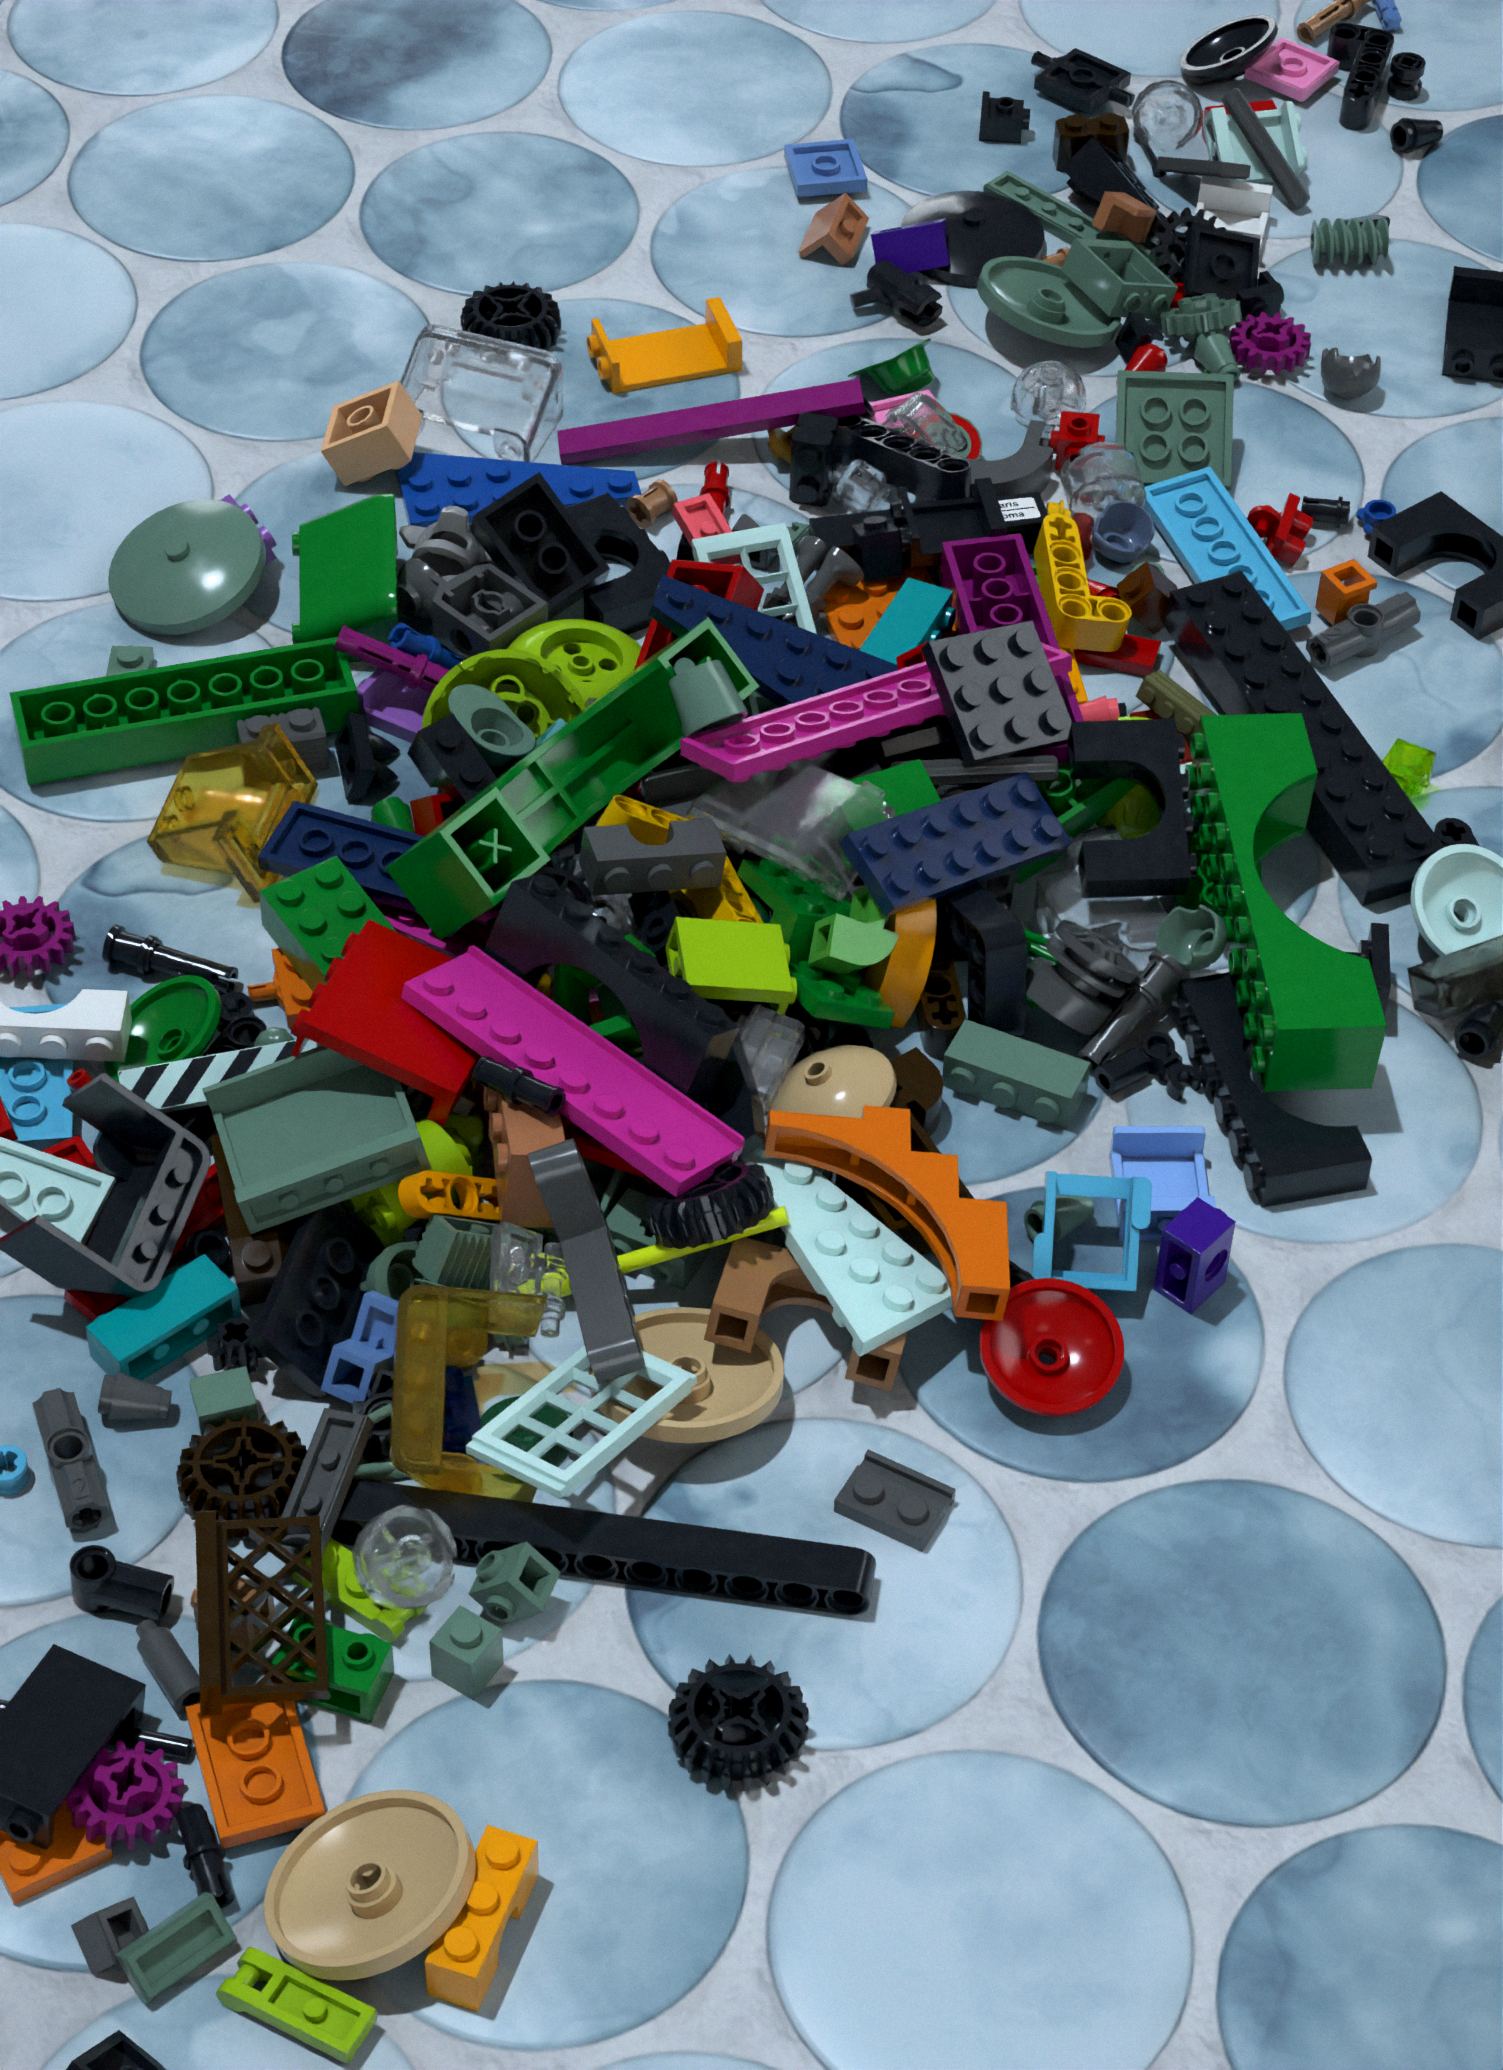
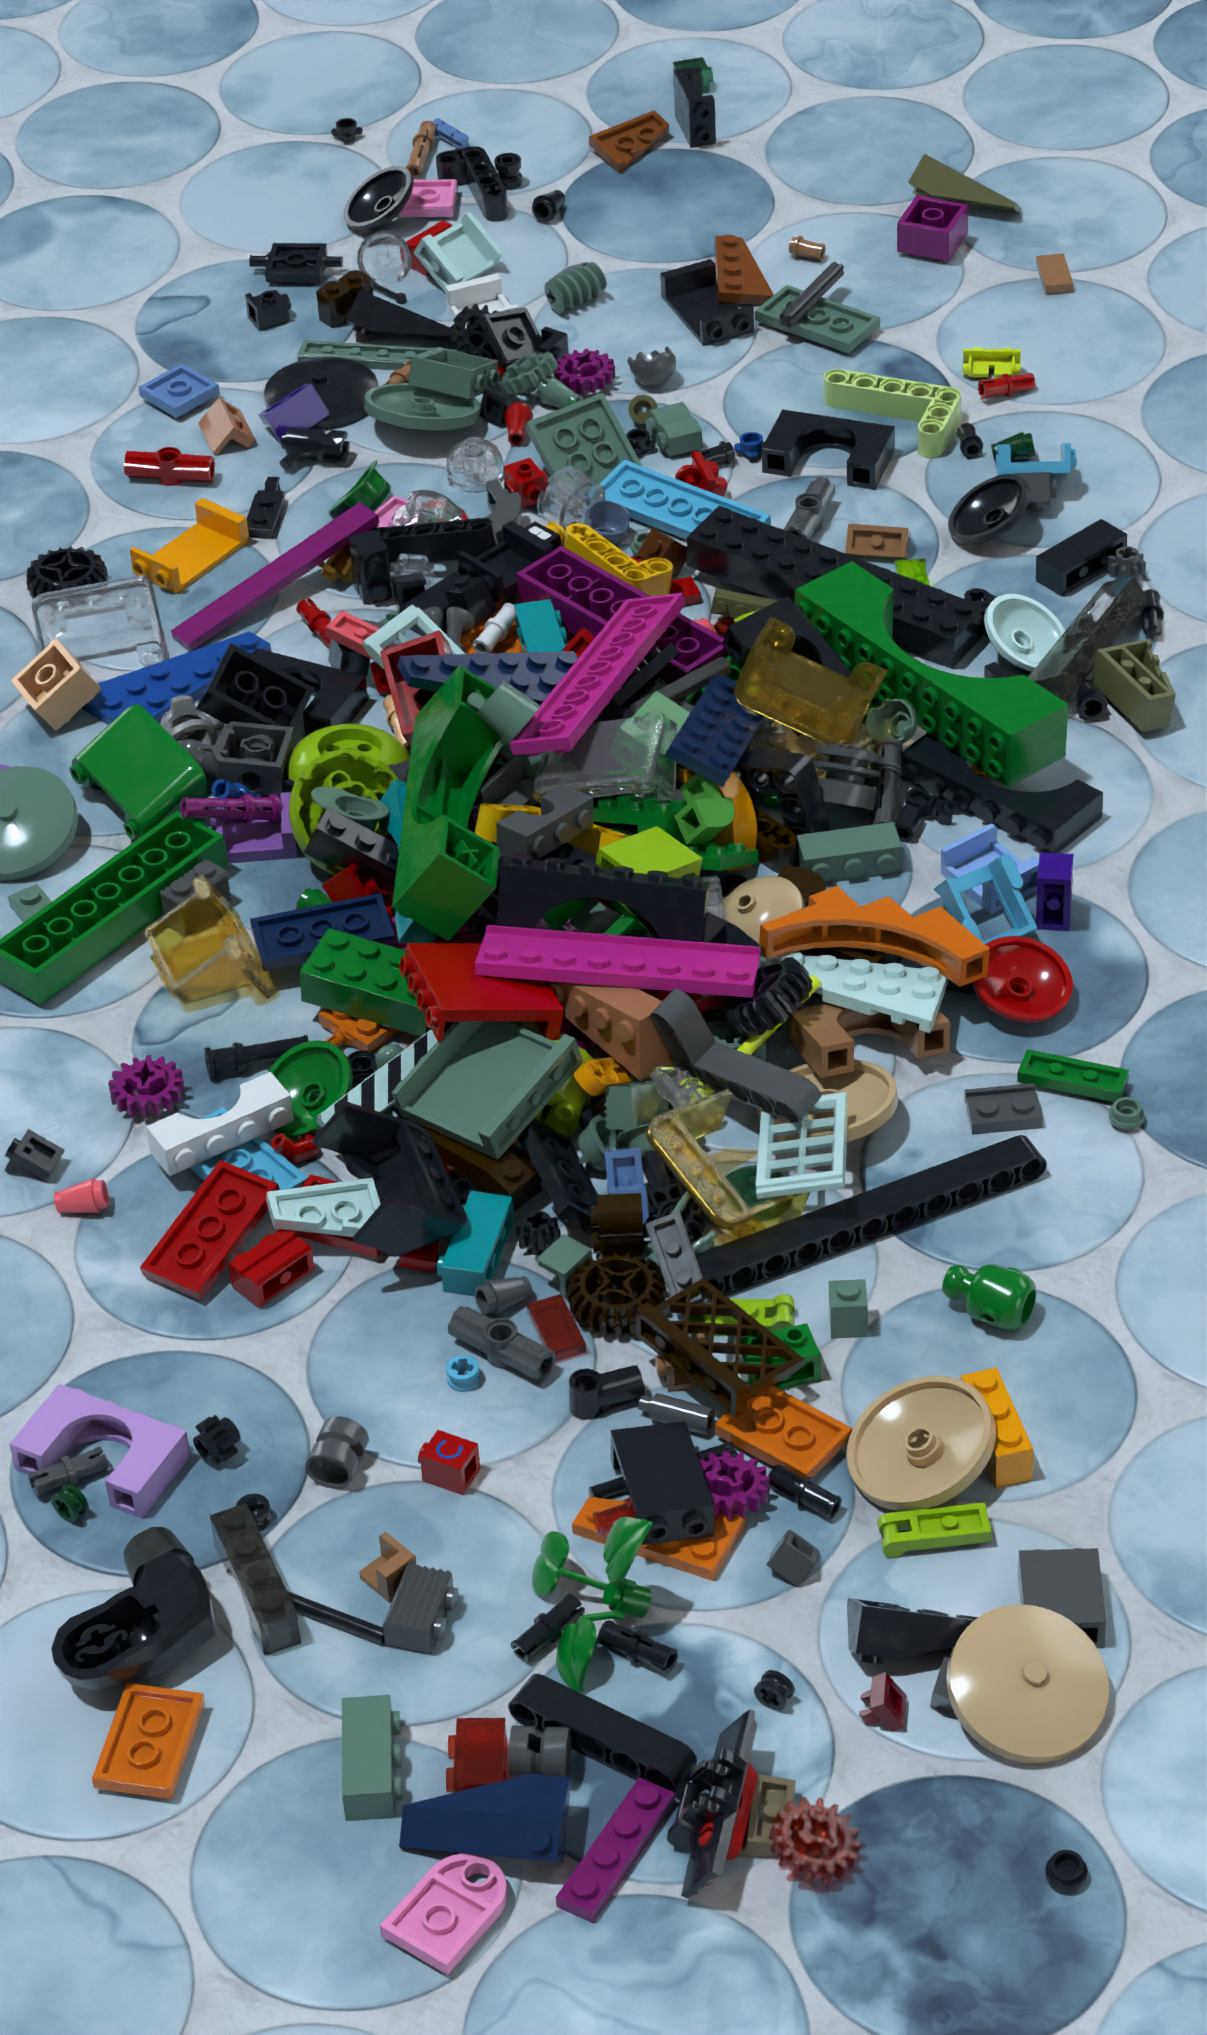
camera: 30 degrees left, 5 degrees down
(150, 1476) = (556, 1327): none -> clear red tile
(176, 1947) = (838, 1540): sand green tile -> none
(305, 1387) = (619, 1225): none -> dark brown brick
(357, 757) = (253, 880): black tile -> none
(404, 1558) = (775, 1273): clear cylinder -> none
(514, 1583) = (840, 1256): sand green brick -> none
(519, 1086) = (604, 982): black pin -> none
(640, 1740) = (993, 1294): none -> green piece
(651, 504) = (287, 643): medium nougat bush -> none
(732, 247) = (169, 466): none -> red piece
(737, 1742) = (1042, 1252): black gear -> none
(786, 343) = (266, 510): none -> black hinge
(833, 500) = (406, 588): none -> black panel
(872, 599) = (495, 630): none -> white pin
(998, 692) = (666, 631): black plate -> none
(1010, 1507) = (1073, 1075): none -> green plate
(1028, 1584) = (1126, 1113): none -> sand green plate
(1103, 842) = (804, 692): none -> clear yellow windscreen
(1124, 215) = (420, 333): nougat panel -> none
(1203, 167) = (440, 281): dark grey tile -> none
(1255, 453) = (640, 440): none -> black plate
(1265, 149) = (470, 251): dark grey axle -> none
(1293, 417) = (636, 408): none -> olive tile
(1305, 457) = (674, 429): none -> sand green brick
(1336, 598) = (780, 494): orange brick -> none
(1411, 704) = (877, 541): none -> medium nougat panel

